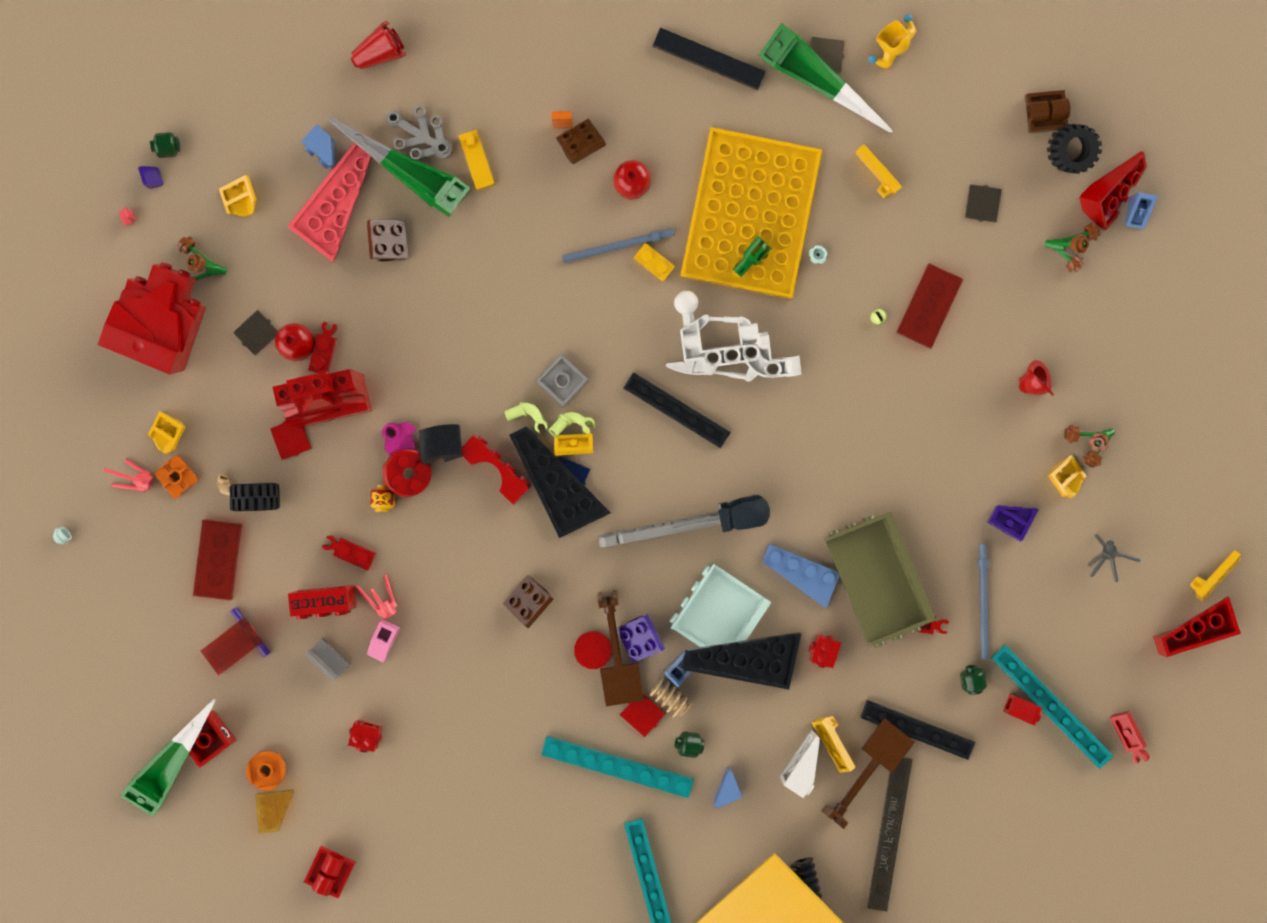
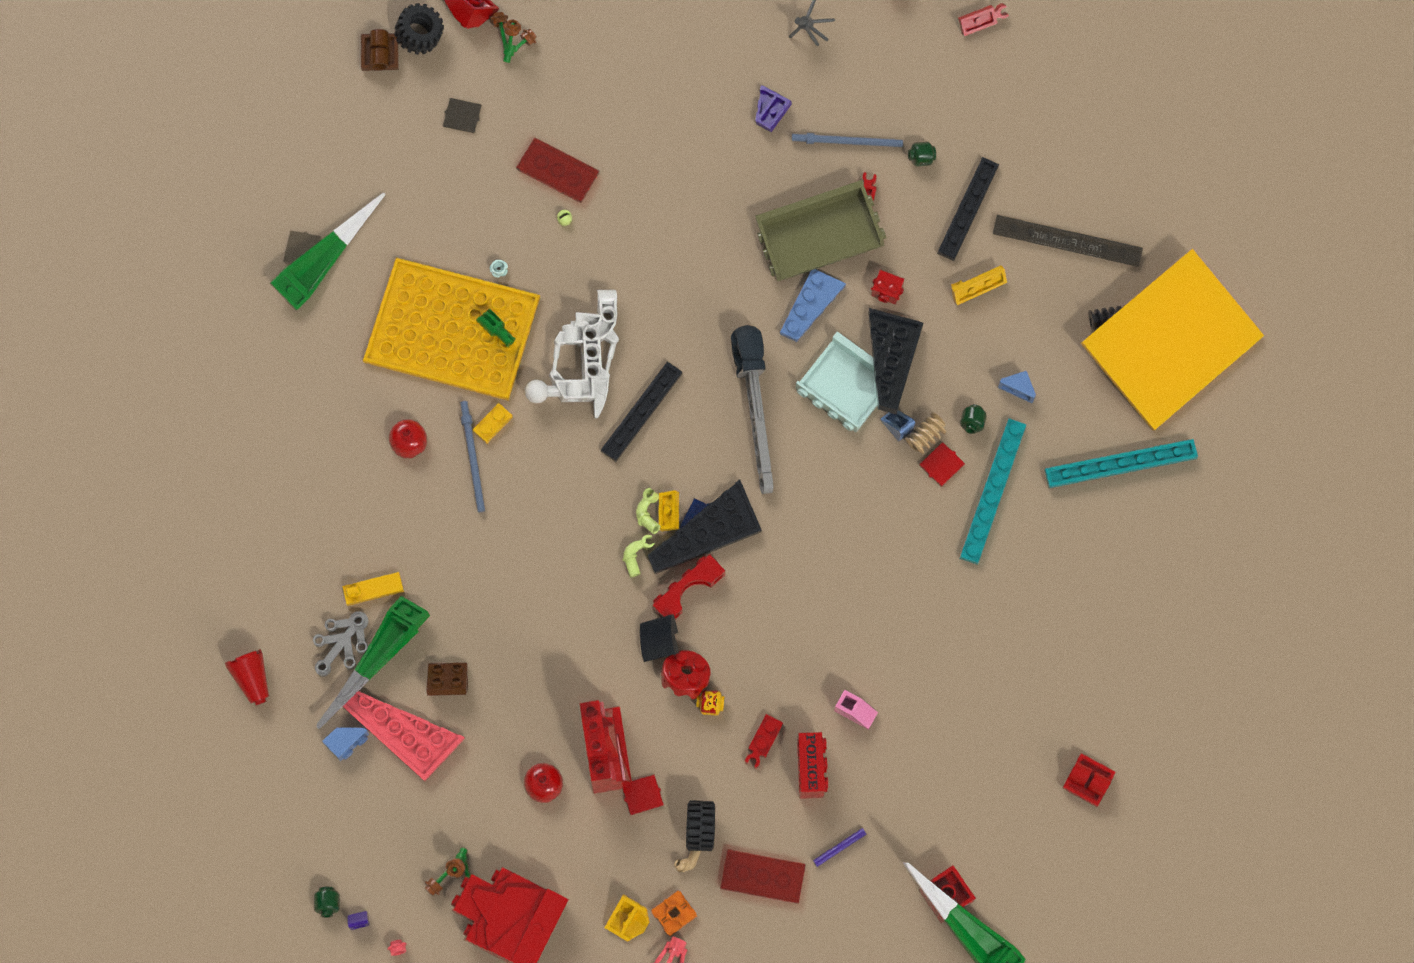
camera: 85 degrees left, 15 degrees down
(231, 646) = (853, 865): clear red piece -> none
(239, 197) = (388, 828): yellow slope -> none
(256, 332) = (530, 822): clear smoke piece -> none
(260, 779) = (990, 830): orange plate -> none
(272, 809) = (1023, 835): clear yellow wing -> none
(323, 350) = (554, 754): red plate -> none
(327, 659) = (871, 768): light grey panel -> none
(365, 736) = (952, 735): red head -> none
(384, 608) = (821, 705): coral plant -> none
(402, 437) = (651, 681): dark pink plate -> none
(528, 601) = (823, 563): reddish brown plate -> none
(562, 119) = (343, 498): orange tile -> none
(562, 380) = (603, 518): light grey plate -> none
(580, 141) = (366, 483): reddish brown plate -> none
(592, 650) = (875, 507): red tile -> none
(621, 681) = (908, 481): reddish brown piece -> none
(640, 638) = (865, 458): dark purple plate -> none
(708, 58) = (294, 358): black tile -> none
(801, 770) = (998, 312): white slope -> none
(886, 747) = (985, 235): reddish brown piece -> none
(889, 183) = (435, 198): yellow hinge -> none
(894, 41) = (297, 183): yellow piece -> none
(1023, 709) = (952, 110): red slope -> none
(1036, 379) = (638, 78): red helmet -> none
(1052, 706) = (950, 86): teal plate -> none
(1067, 477) = (731, 57): yellow slope -> none
(1097, 440) = (700, 24): dark orange plant -> none

